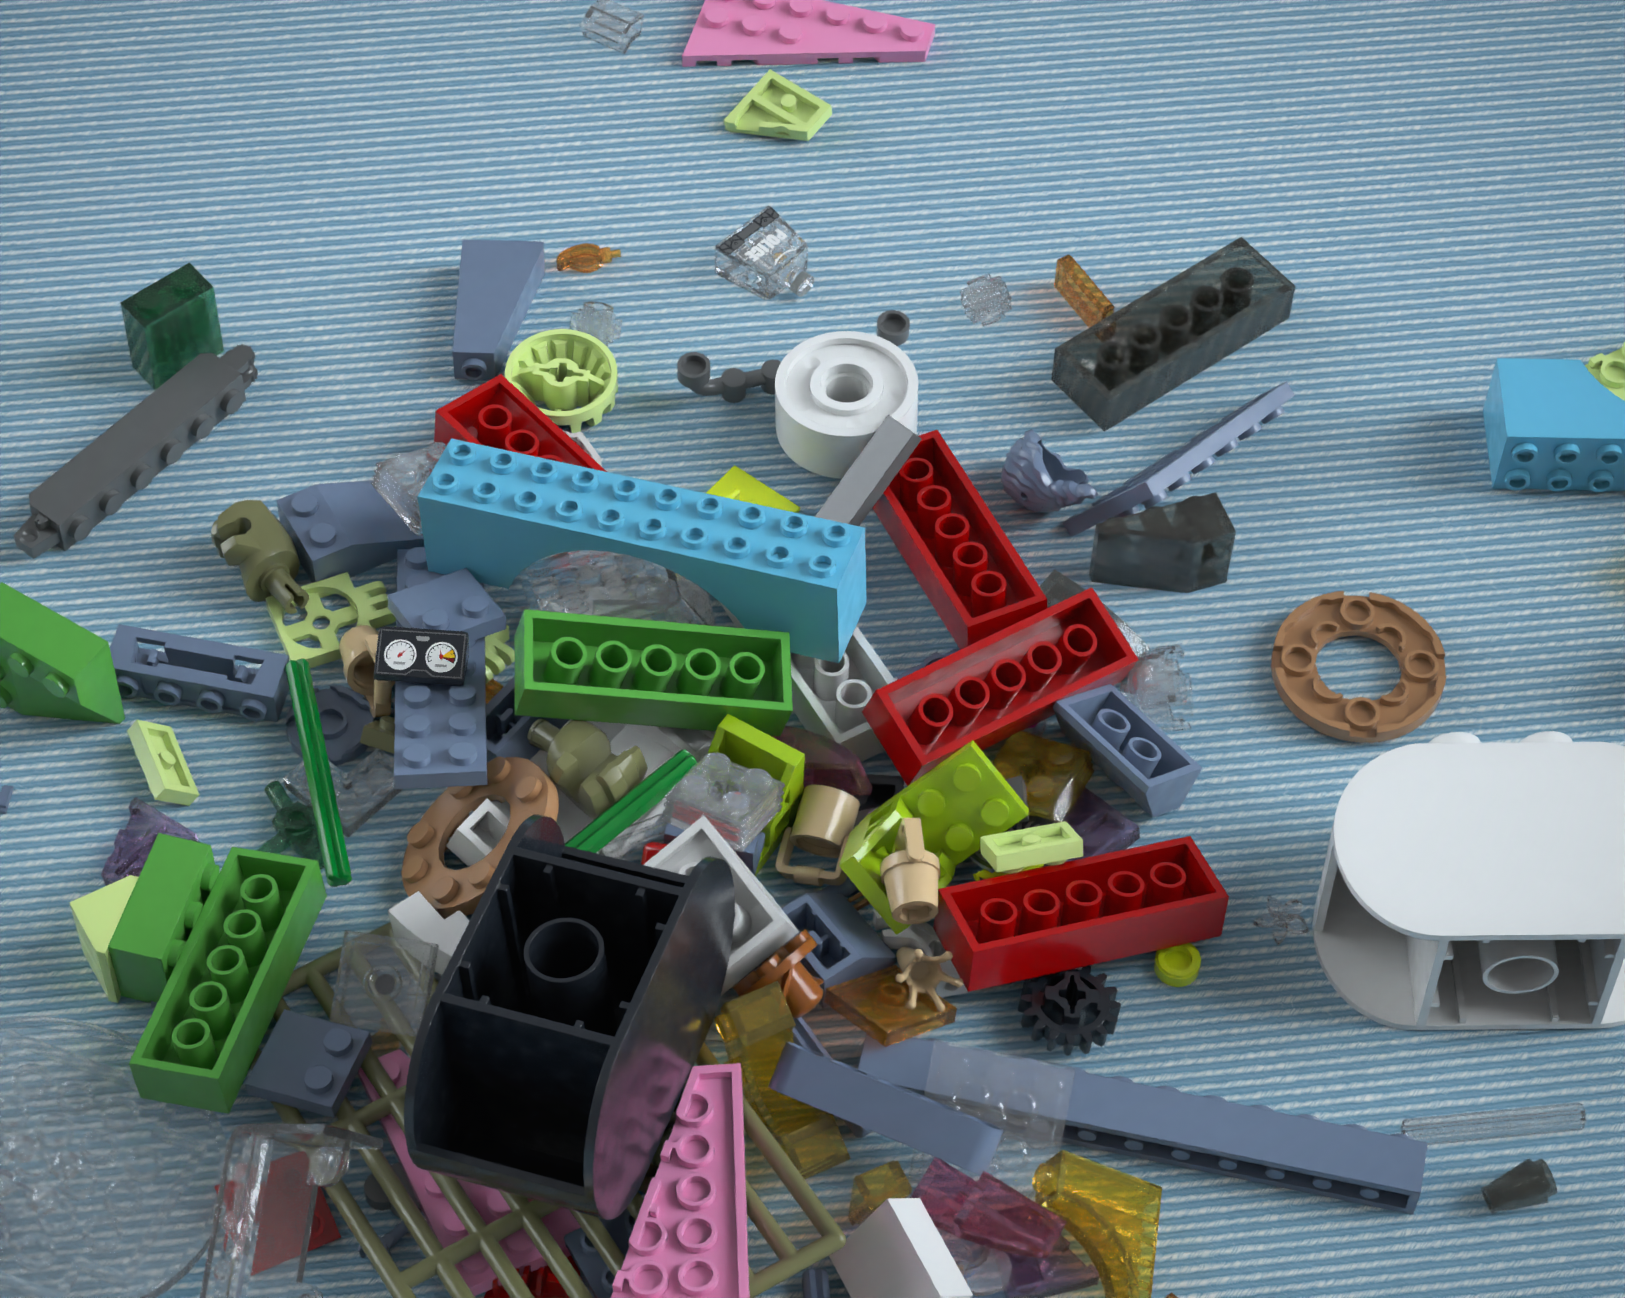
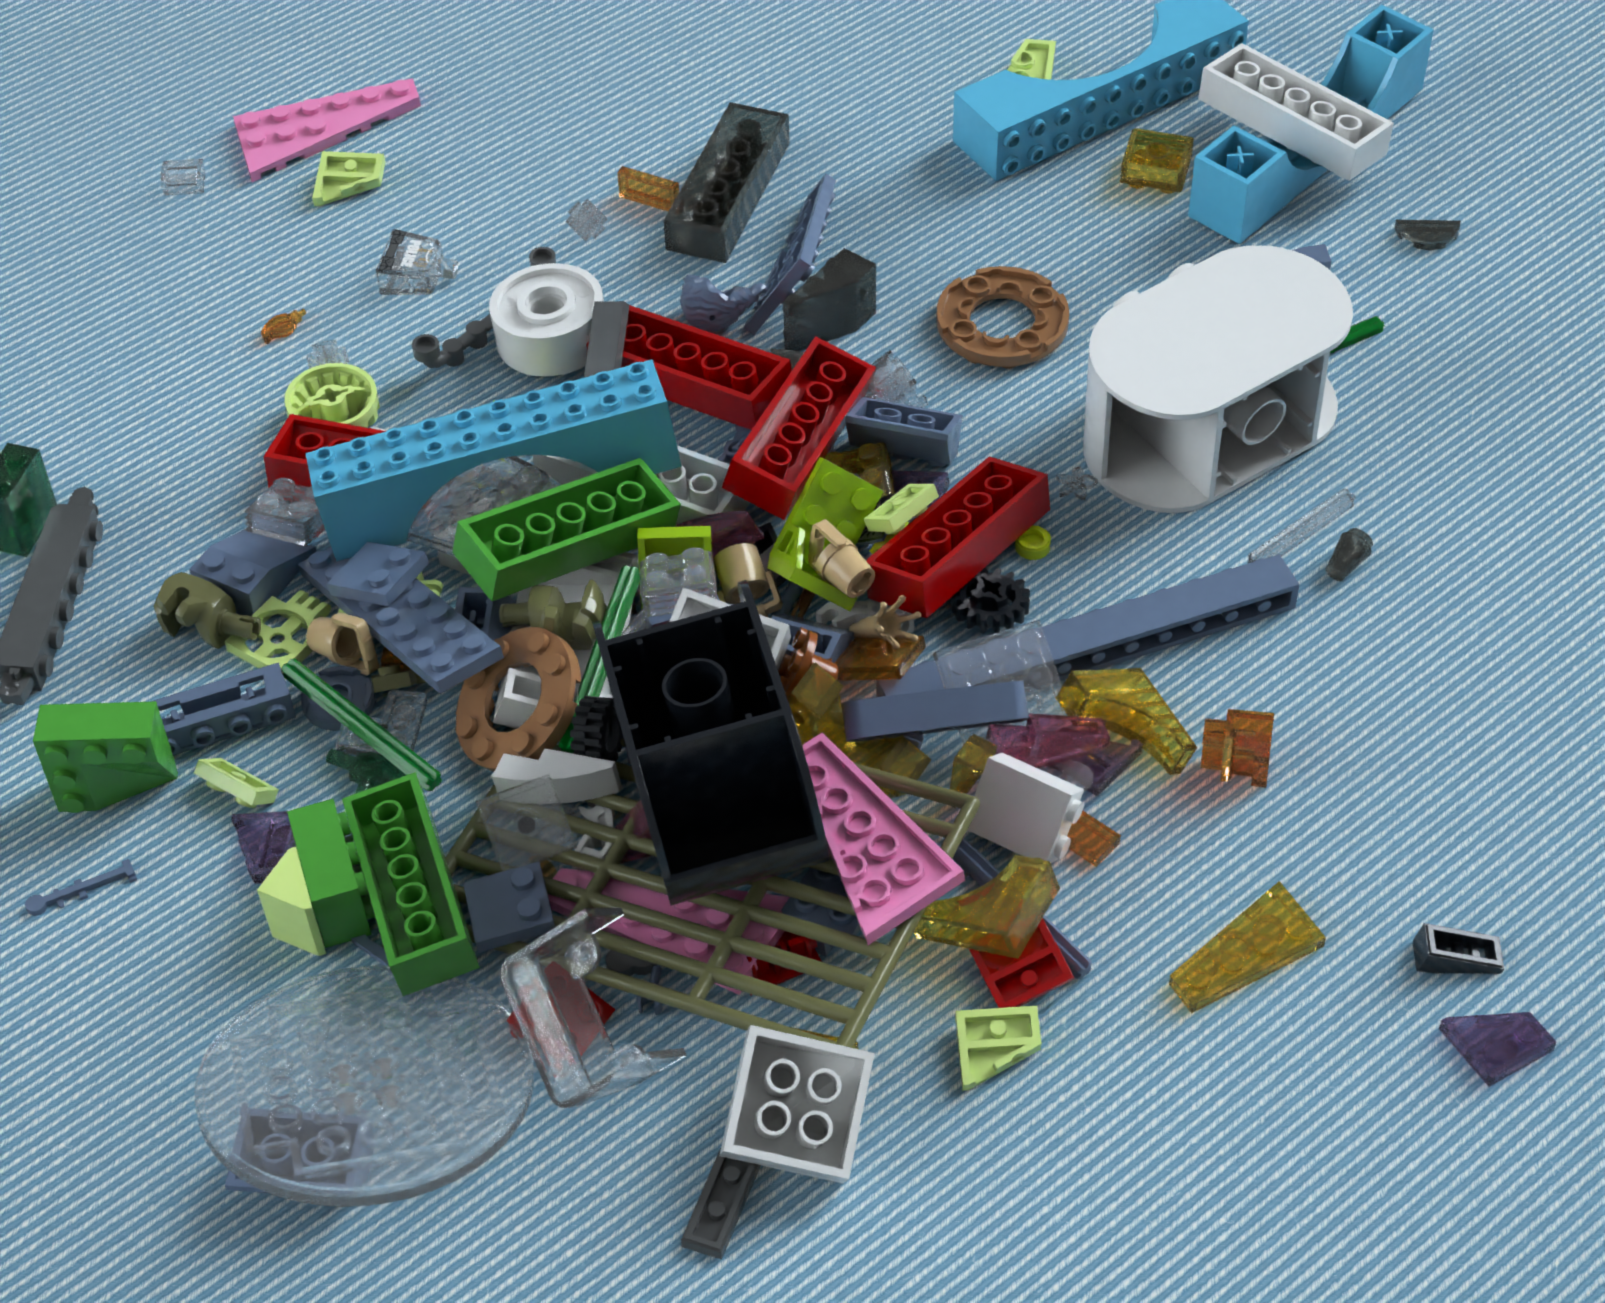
camera: 30 degrees left, 5 degrees down
(421, 655) = (389, 602): slope -> none
(492, 301) = (236, 380): sand blue slope -> none

